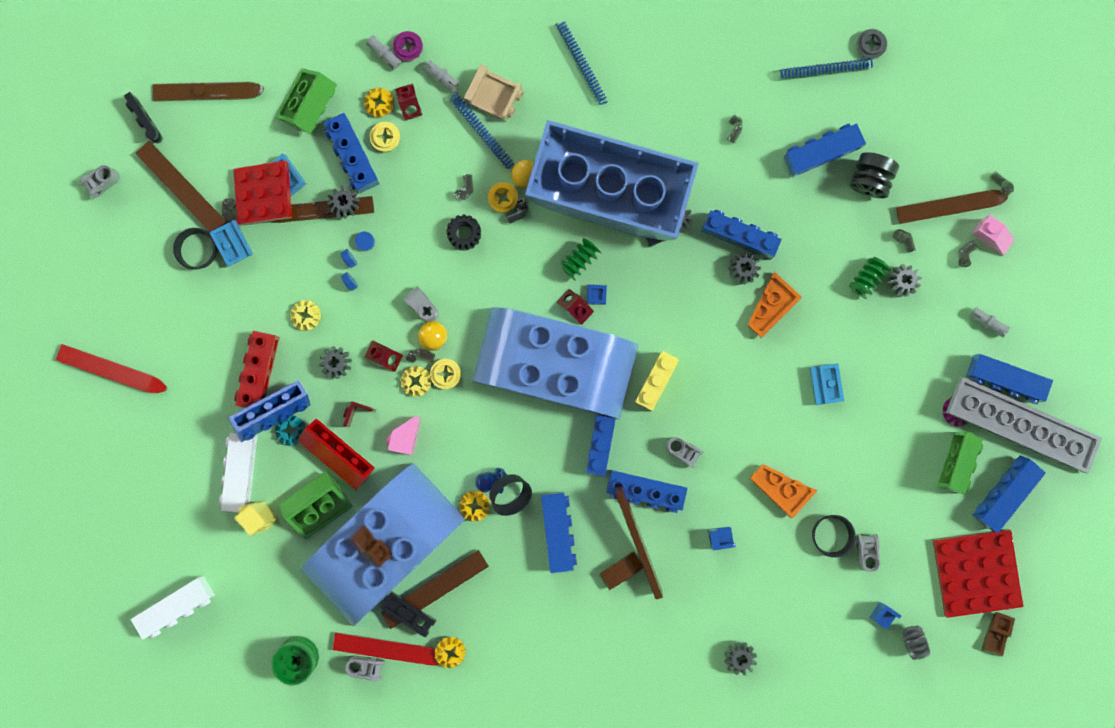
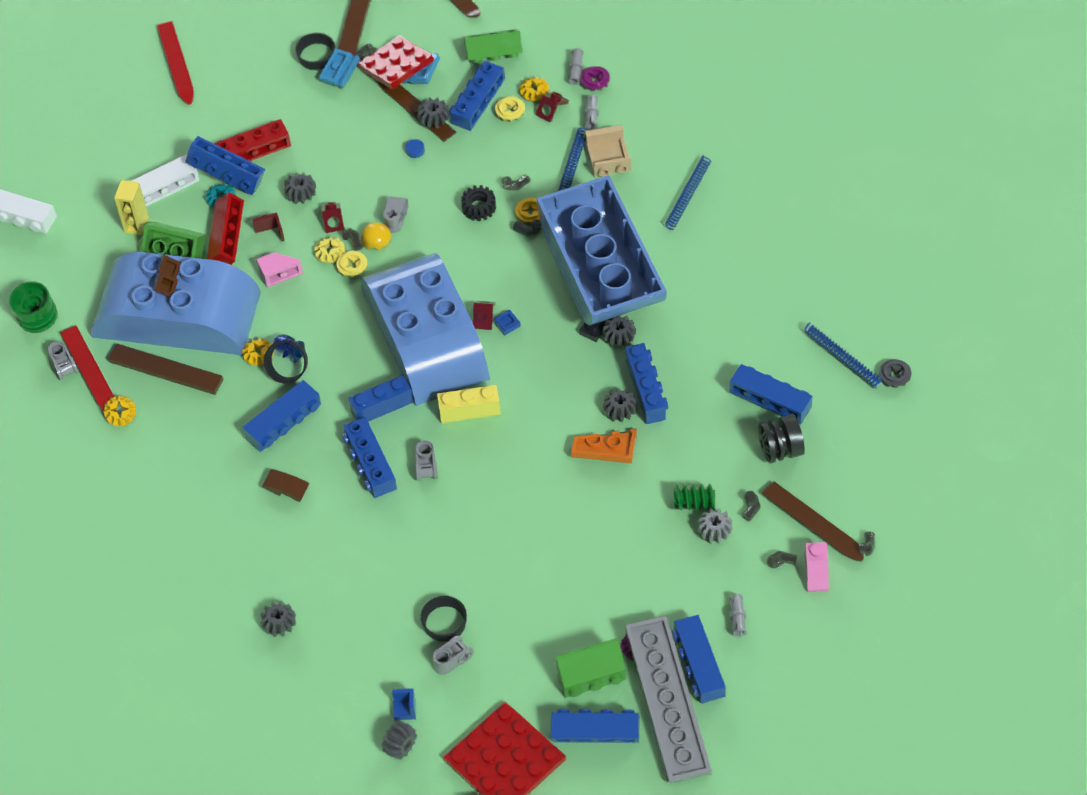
camera: 55 degrees right, 30 degrees down
(309, 323) = (317, 154): light yellow gear -> none
(348, 258) = (391, 145): blue tile -> none
(349, 281) = (373, 156): blue tile -> none
(408, 613) = (130, 358): black plate -> none
(579, 258) = (523, 288): green piece -> none
(639, 542) = (319, 473): reddish brown tile -> none
(721, 538) = (371, 538): blue panel -> none
(737, 122) = (737, 324): clear smoke arm -> none
(783, 491) = (453, 557): orange wing -> none
(826, 384) = (573, 528): dark azure plate -> none

